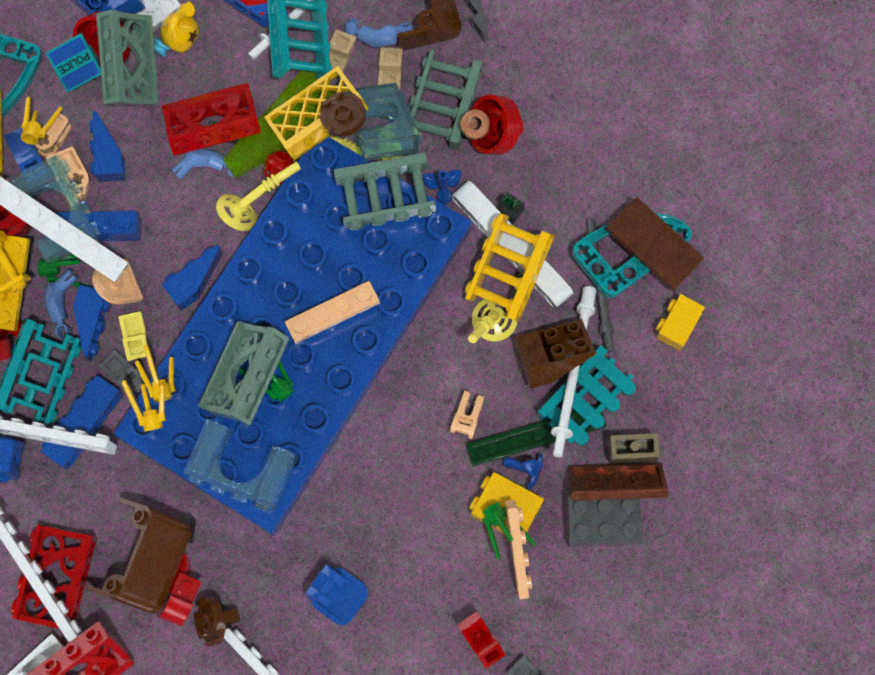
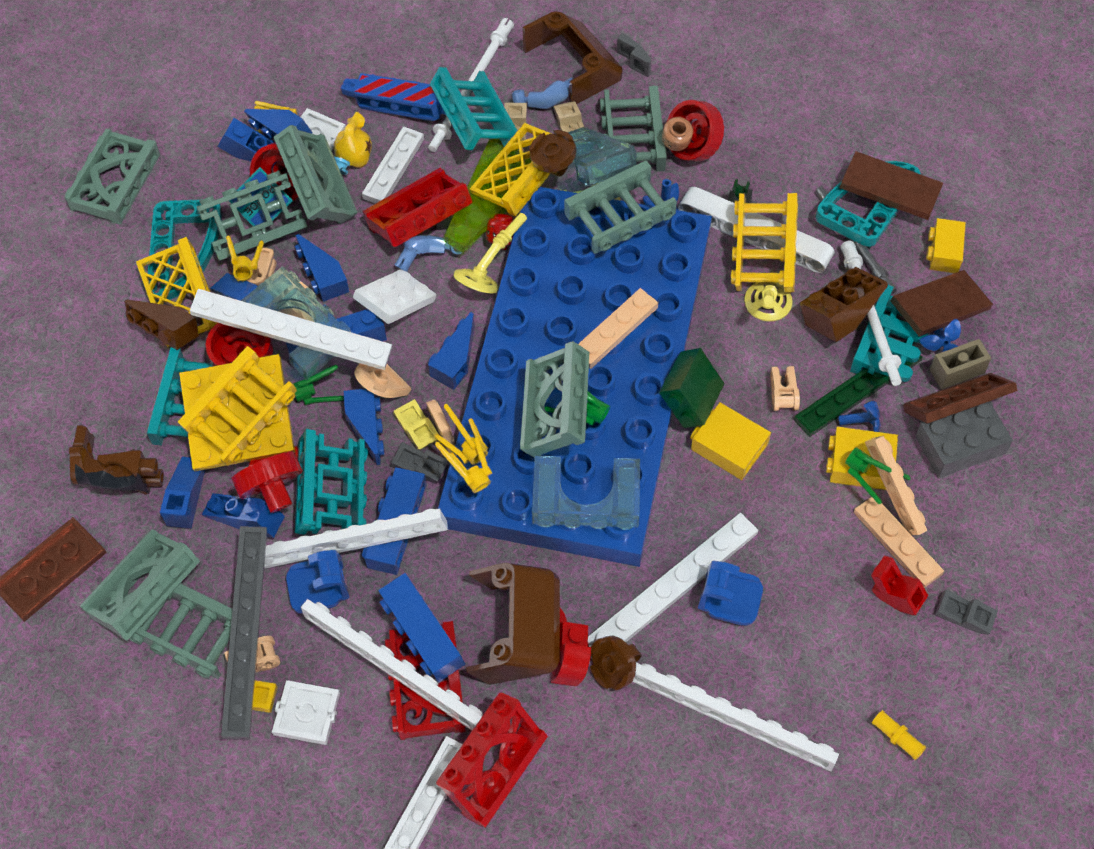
camera: 20 degrees left, 15 degrees down
(55, 299) = (321, 415): medium blue arm -> none
(58, 96) = (258, 231): none -> sand green fence
(60, 535) = (422, 628): none -> blue brick
(149, 338) = (440, 422): none -> light nougat tile
(158, 204) = (394, 296): none -> white plate
(209, 63) = (393, 165): none -> white plate
(295, 564) = (677, 581): none -> white plate
(379, 391) = (692, 388): none -> dark green brick
(397, 448) = (730, 440): none -> yellow brick
(504, 595) = (898, 541): none -> light nougat plate
(633, 416) = (942, 337): none -> blue plant
(646, 380) = (940, 302): none -> copper tile

